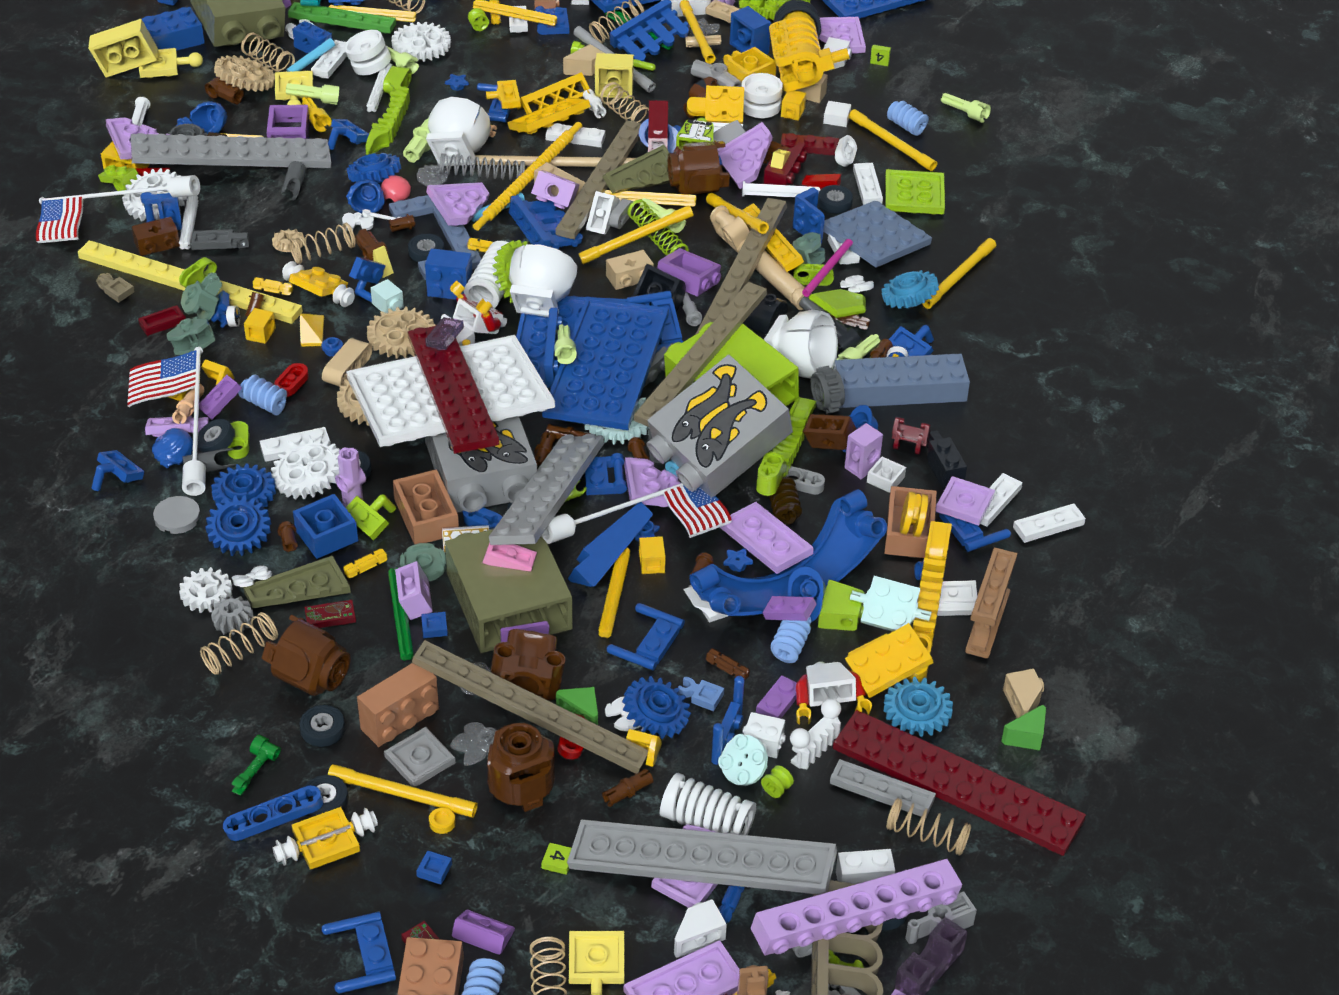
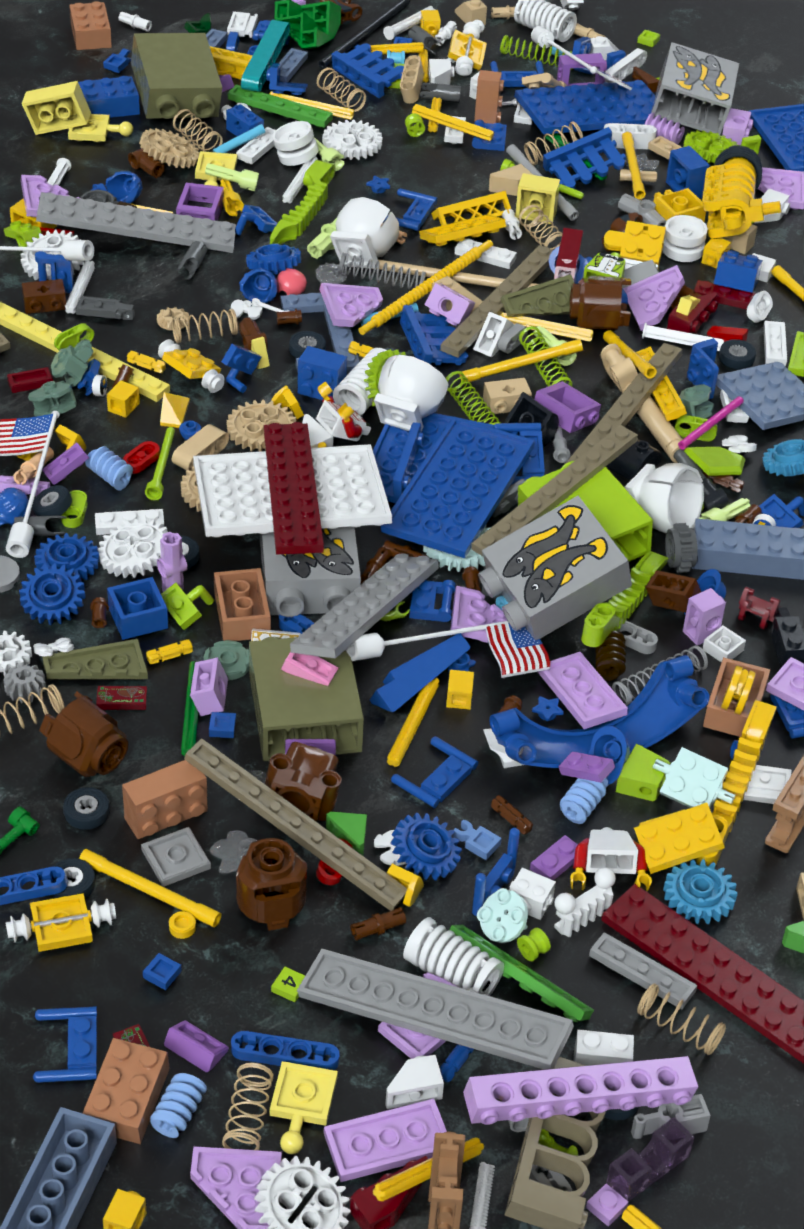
camera: 10 degrees right, 0 degrees up
(312, 408) = (154, 488): none -> lime piece
(386, 296) = (255, 387): light aqua brick -> none
(420, 302) = (287, 399): none -> yellow tile
(444, 333) = (297, 432): clear purple plate -> none
(506, 93) = (424, 203): yellow plate -> none
(565, 347) = (418, 463): yellowish green piece -> none
(568, 916) = (286, 1047): none -> blue beam
(594, 290) = (453, 390): none -> lime piece
(781, 815) = (529, 979): none -> bright green plate
(805, 528) = (627, 692): none -> light grey piece
(819, 120) = (738, 271): none -> blue brick

